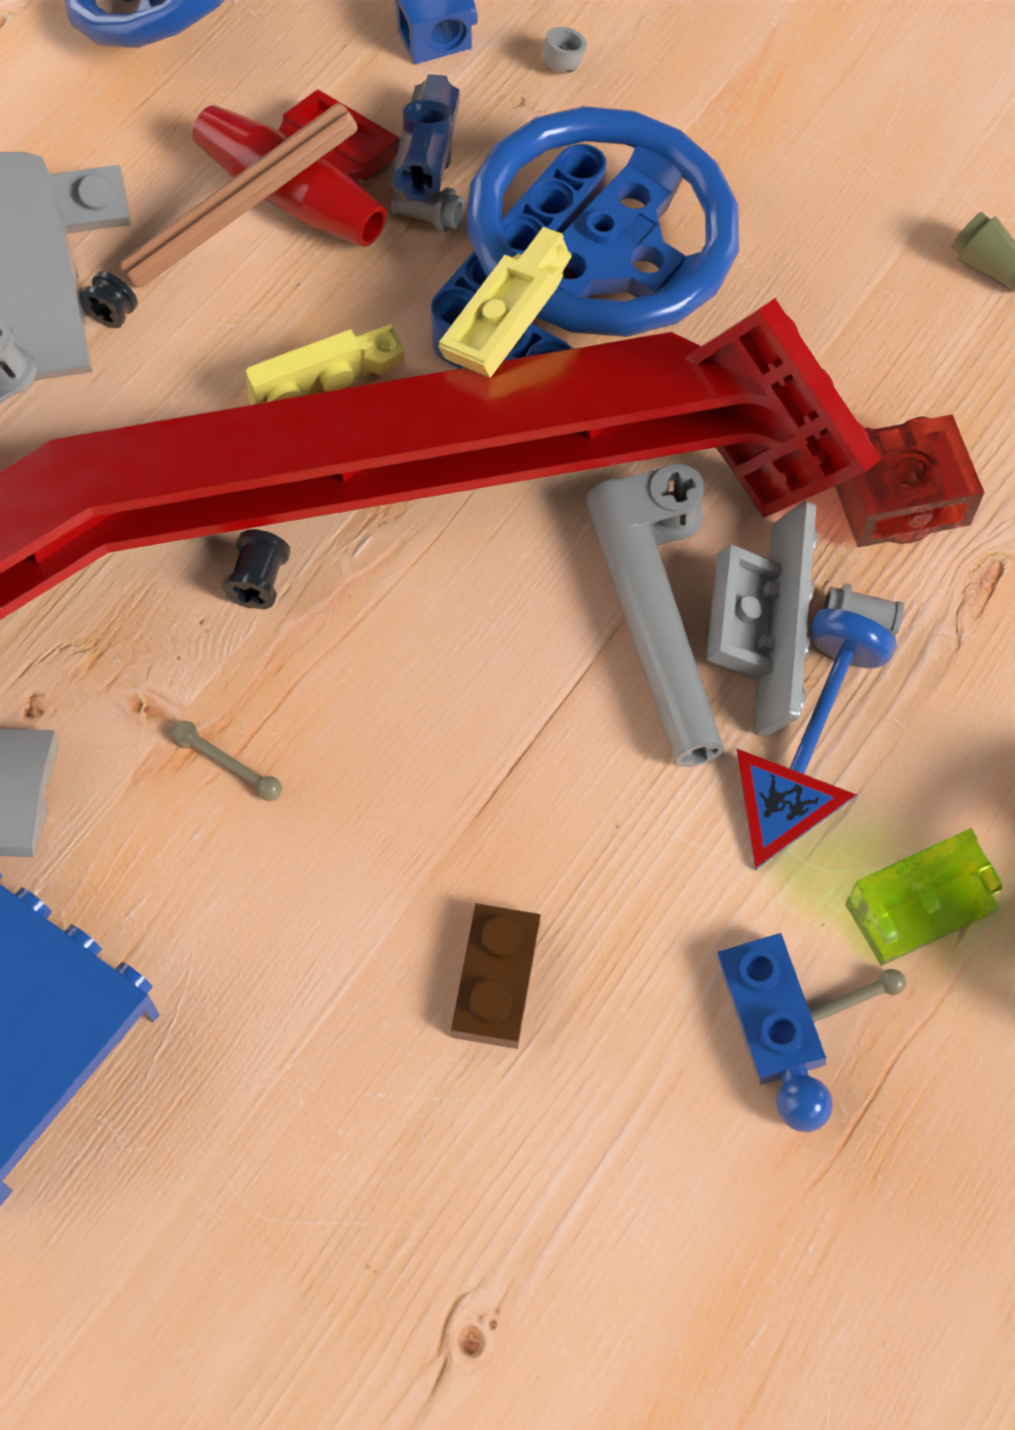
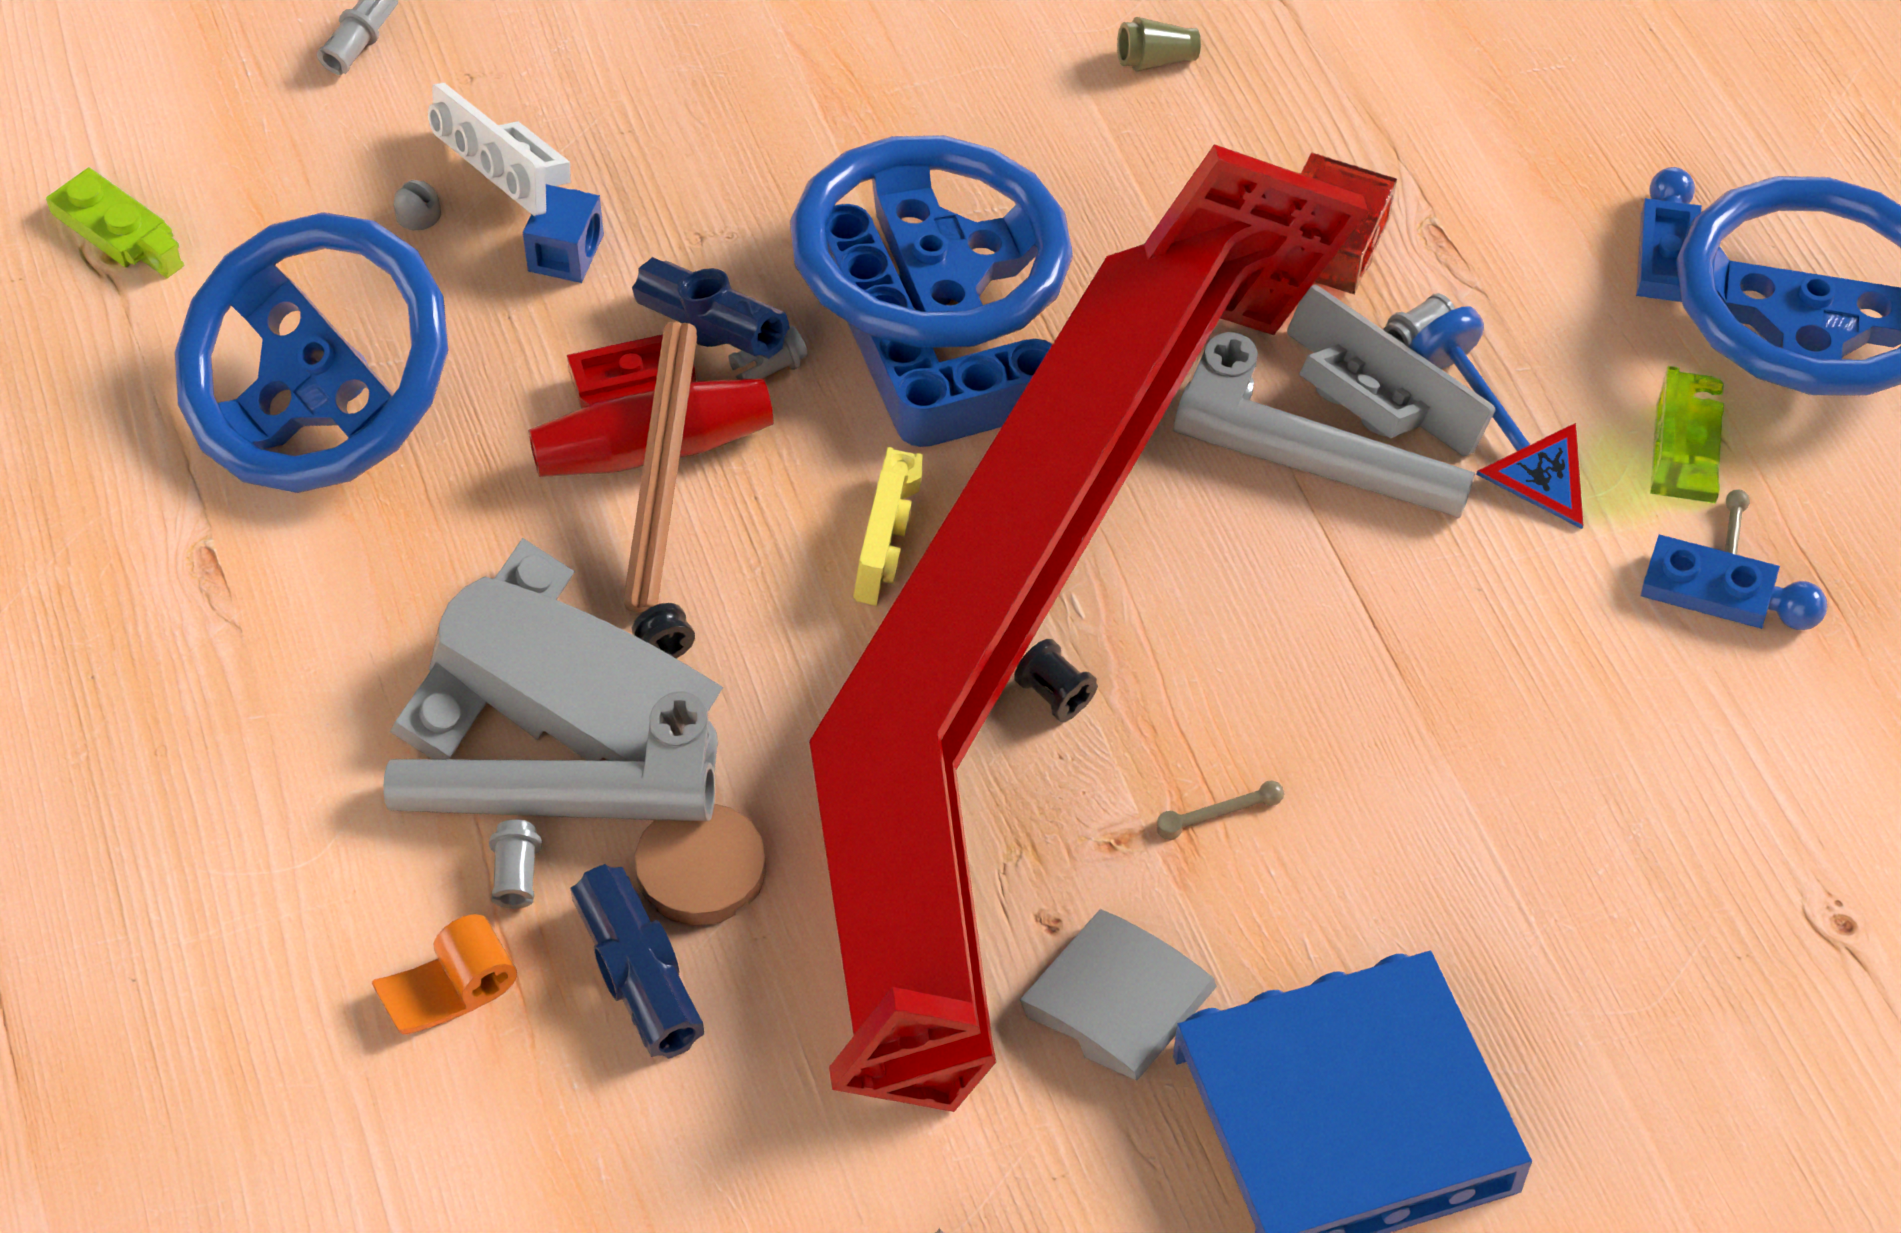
camera: 55 degrees left, 10 degrees down
(496, 976) = (1557, 735): reddish brown plate -> none
(506, 304) = (991, 341): light yellow hinge -> none
(563, 49) = (686, 171): light grey hinge -> none

